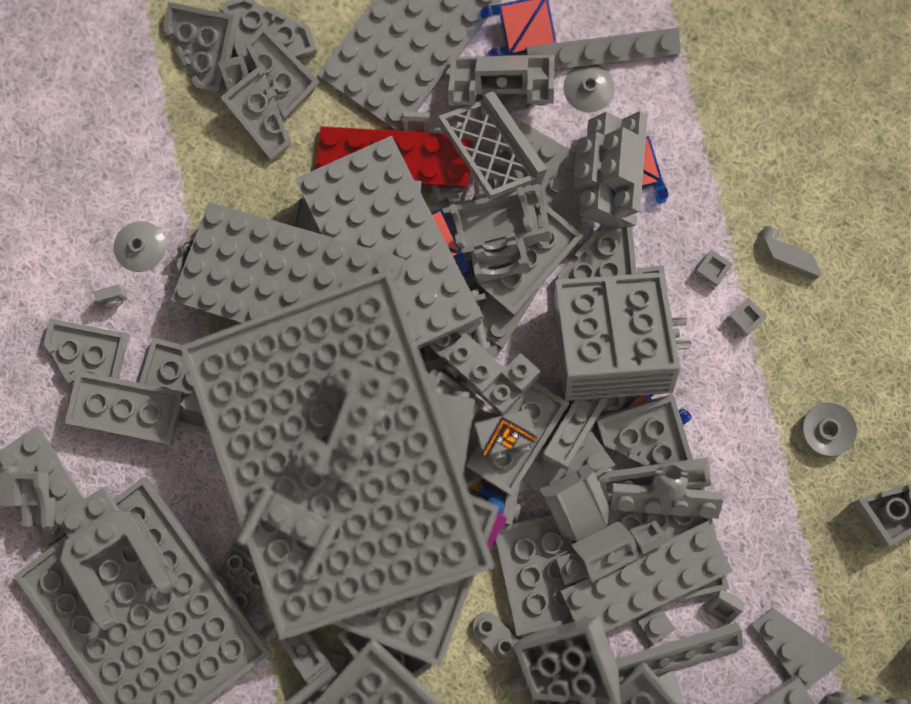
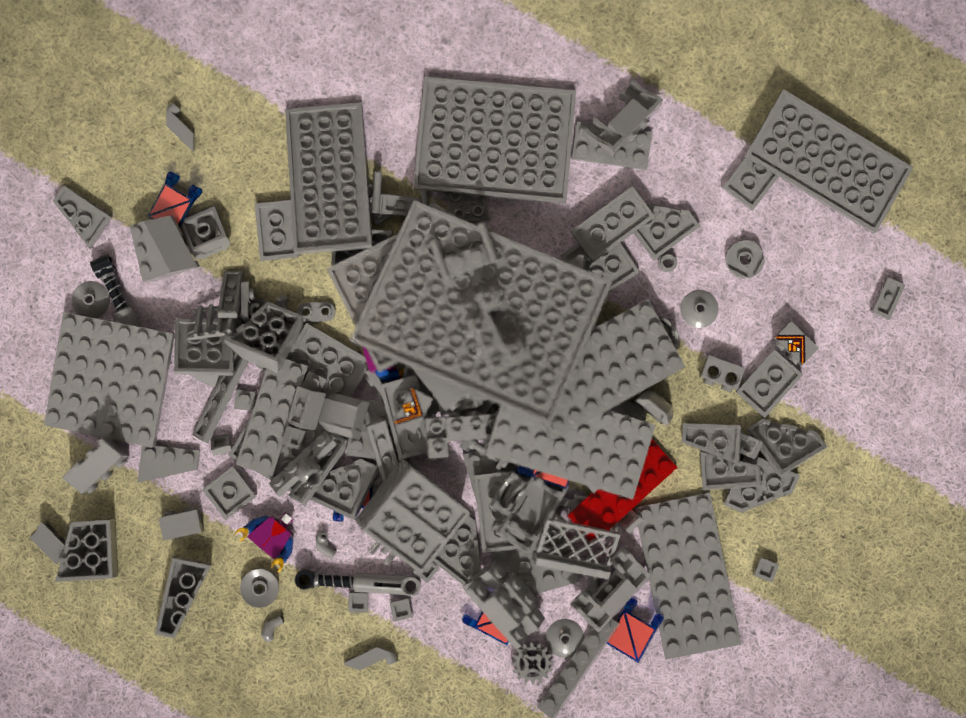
camera: 135 degrees right, 5 degrees up
(35, 236) = (754, 254): none -> light grey plate
(91, 120) = (794, 343): none -> light grey brick
(94, 528) = (560, 156): light grey plate -> none
(110, 296) = (683, 268): light grey plate -> none
(110, 318) = (672, 258): none -> light grey plate
(154, 111) = (769, 383): none -> light grey plate
(181, 167) = (723, 368): none -> light grey brick
(278, 195) = (655, 406): none -> light grey slope
(653, 89) = (542, 672): none -> light grey gear
(725, 405) = (323, 546): none -> light grey arm
(726, 332) = (360, 582): none -> piece
(765, 551) = (229, 493): none -> light grey plate
(768, 465) = (271, 537): none -> torso
(844, 571) = (181, 524): none -> light grey brick
(856, 384) = (268, 628): none -> light grey arm

